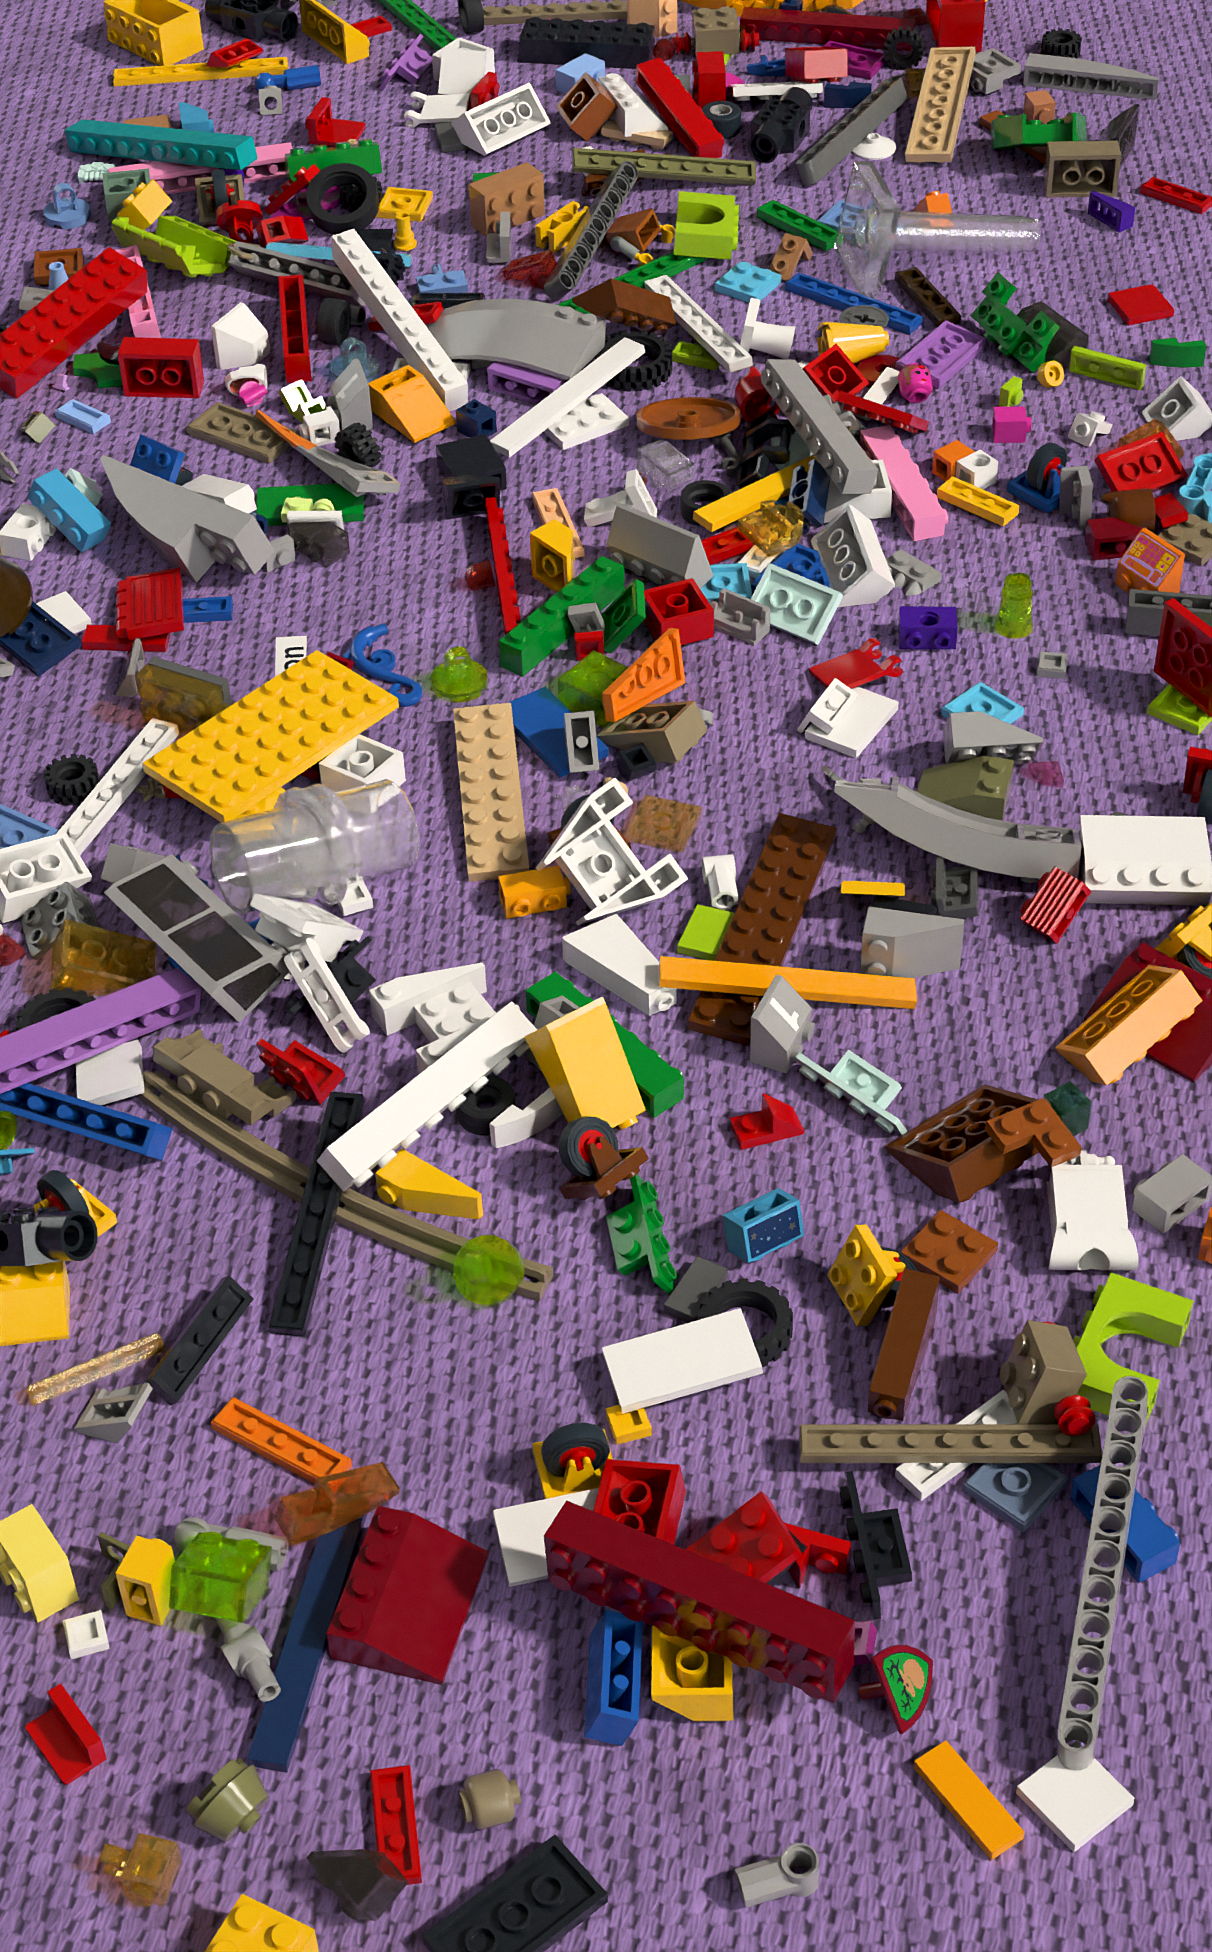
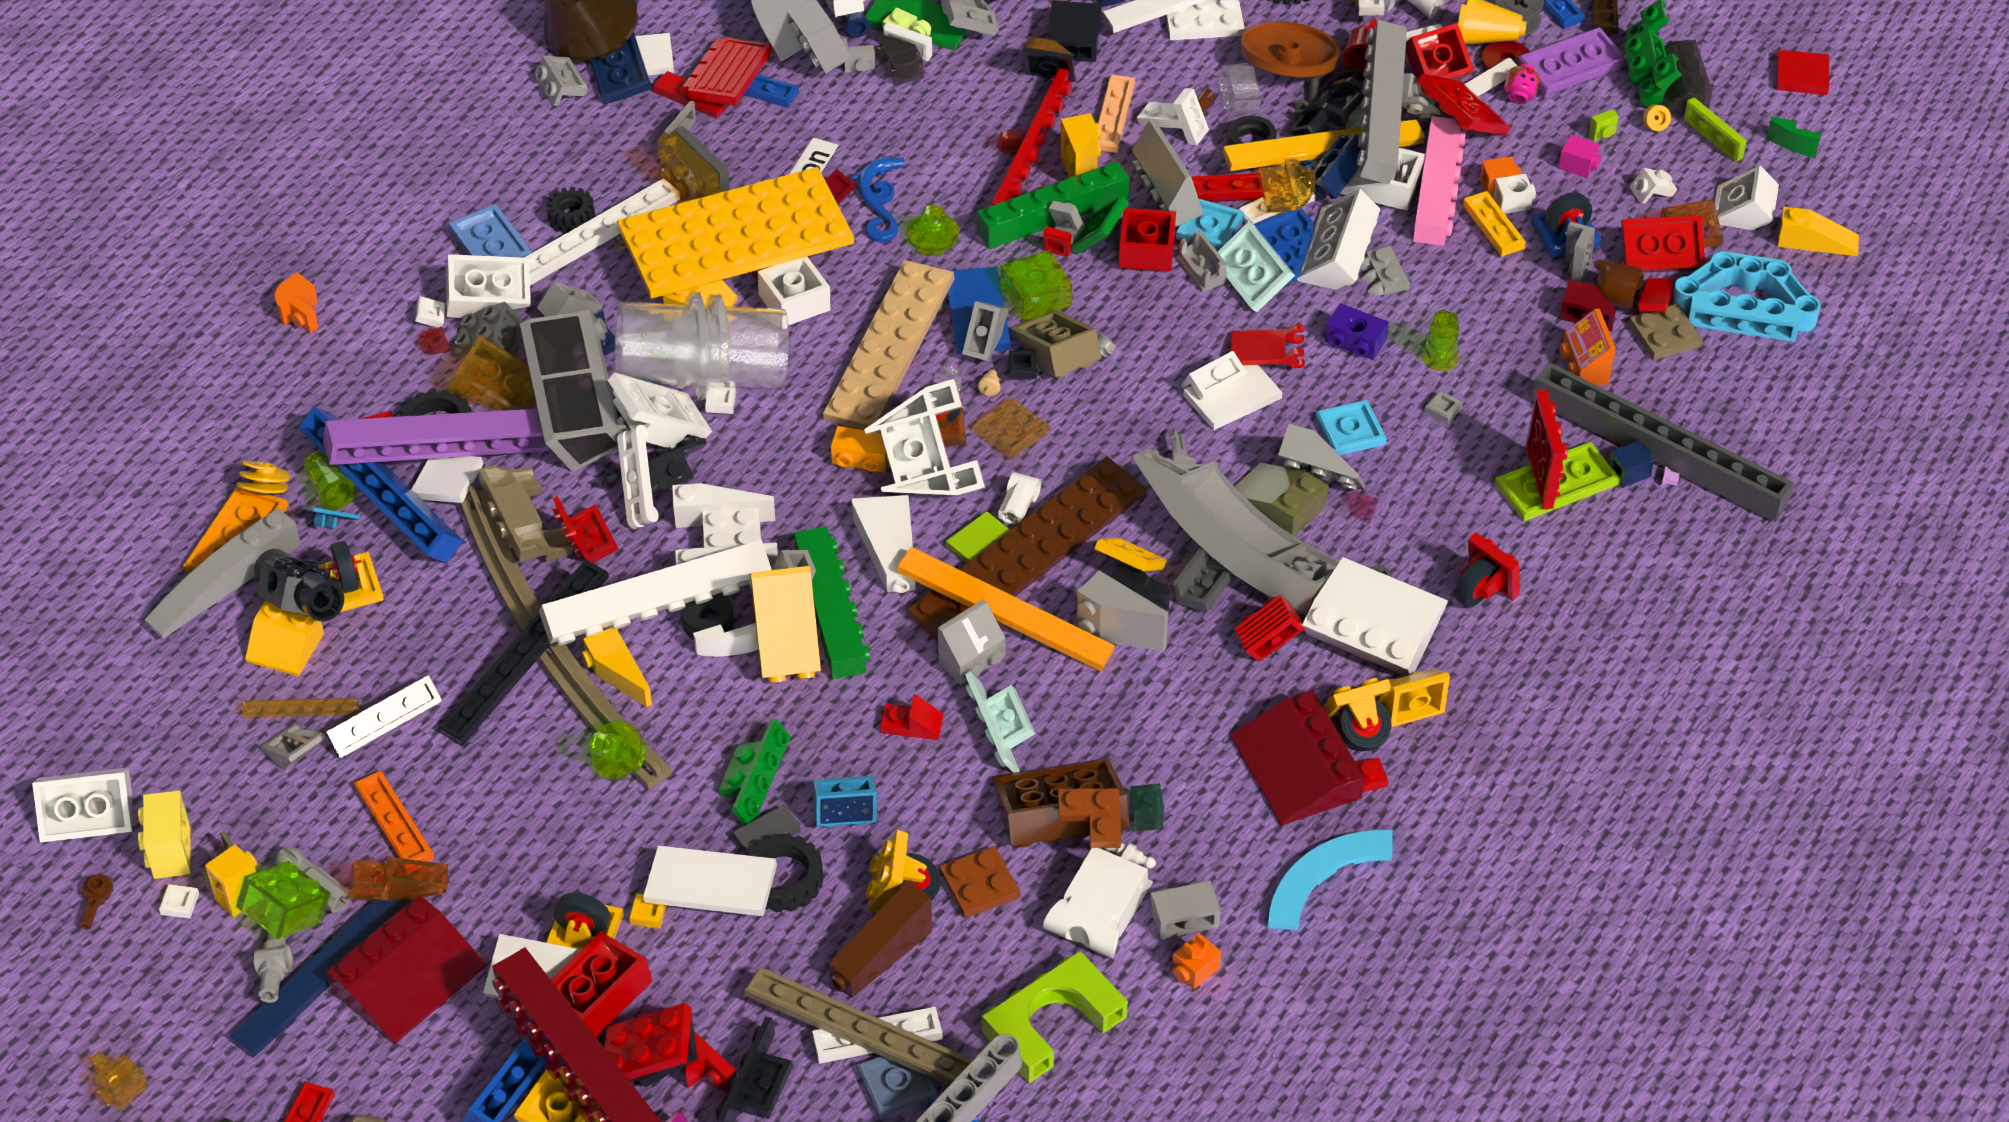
camera: 25 degrees right, 5 degrees up
(66, 1737) = (122, 968): red panel -> none
(229, 1801) = (195, 1059): olive cone -> none
(592, 1154) = (750, 694): plate -> none
(647, 679) = (1077, 292): orange wing -> none
(1045, 1379) = (963, 1008): dark tan brick -> none
(1130, 1023) = (1249, 756): light orange slope -> none

